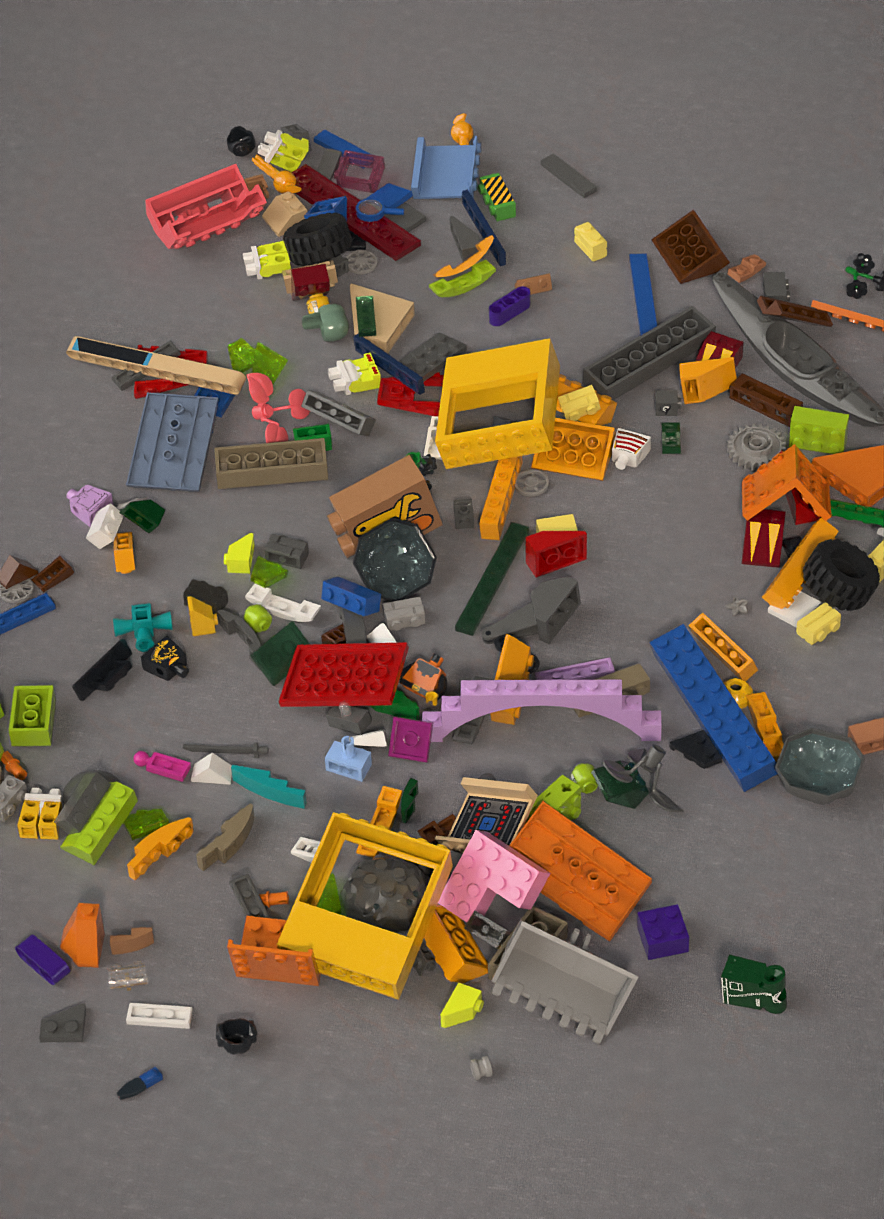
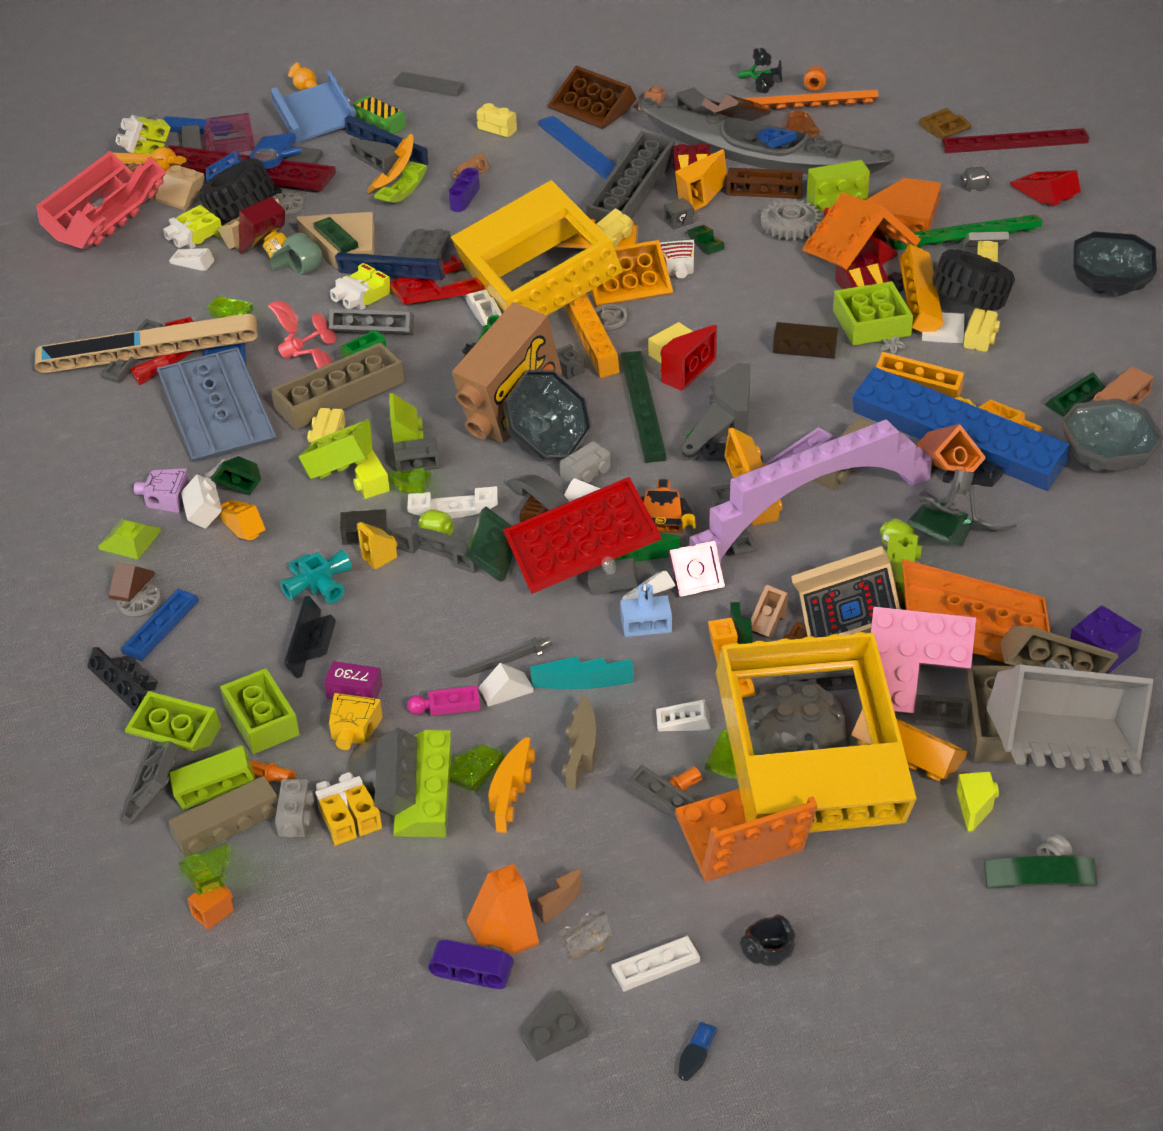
camera: 30 degrees left, 5 degrees down
(42, 534) = (129, 538): none -> lime slope
(53, 567) = (174, 554): reddish brown slope -> none
(90, 750) = (353, 719): none -> yellow torso
(110, 722) = (353, 680): none -> magenta brick
(165, 660) = (368, 600): black torso -> none
(226, 523) = (338, 450): none -> lime slope
(238, 500) = (326, 423): none -> light yellow brick
(240, 141) = (89, 146): black hair -> none
(251, 293) = (196, 259): none -> white slope
(268, 362) = (257, 305): clear neon green wing -> none
(293, 518) = (404, 420): none -> lime slope
(351, 596) = (522, 466): blue brick -> none
(436, 795) = (769, 609): none -> medium nougat slope
(460, 1078) = (1040, 871): none -> dark green slope
(604, 929) = (1035, 647): none -> dark tan slope
(666, 573) = (805, 340): none -> dark brown brick
(680, 726) = (952, 449): none -> orange slope
(738, 570) = (872, 313): none -> lime slope
(805, 357) = (775, 137): none -> blue wing
(844, 717) = (1076, 393): none -> dark green slope
(854, 348) = (802, 122): none -> clear orange wing

